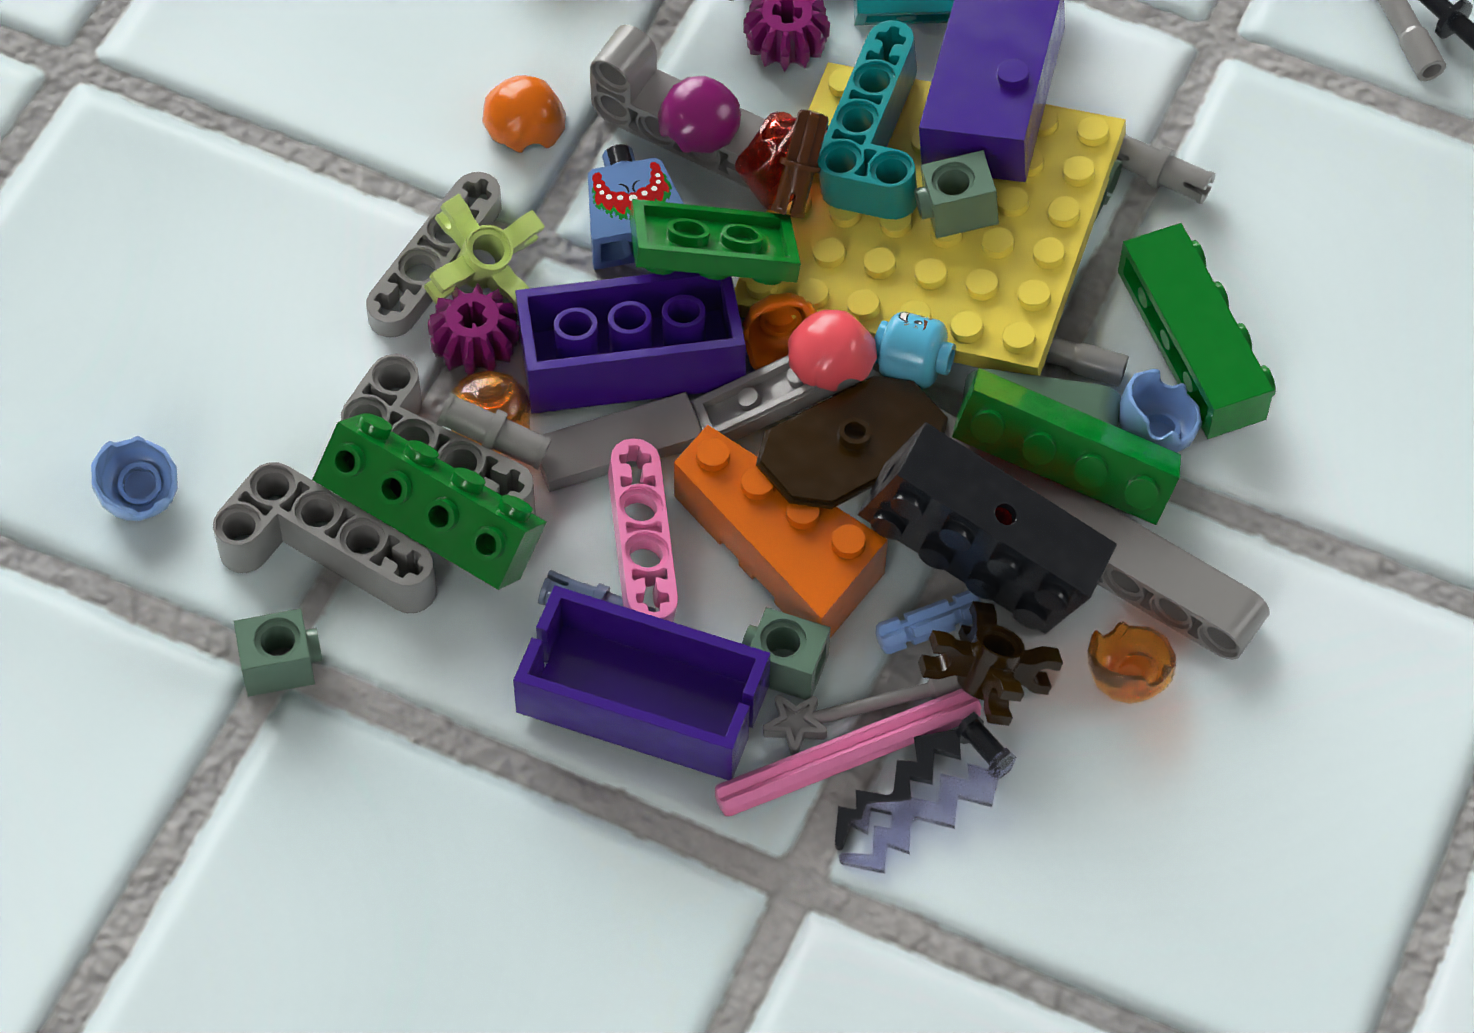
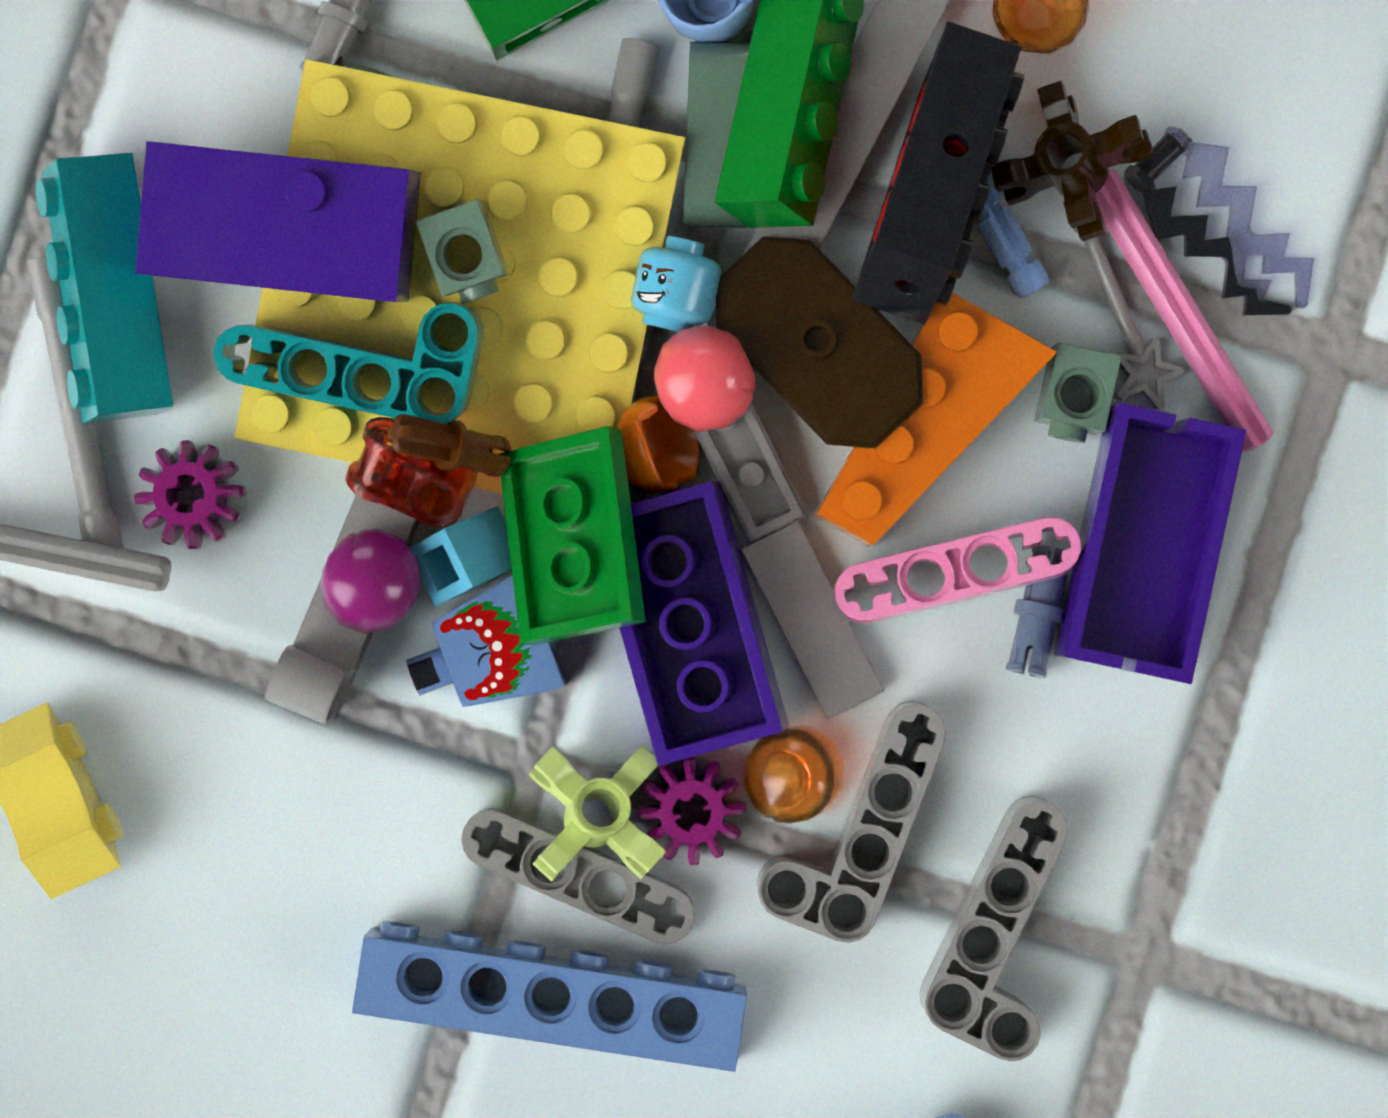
camera: 90 degrees left, 30 degrees up
(265, 633) = (1167, 980): sand green brick -> none
(366, 143) = (389, 993): none -> medium blue brick
(430, 499) = (958, 818): green brick -> none
(494, 431) = (848, 760): light grey pin -> none
(523, 113) = (359, 801): orange hair -> none
(709, 182) = (476, 550): none -> medium azure brick

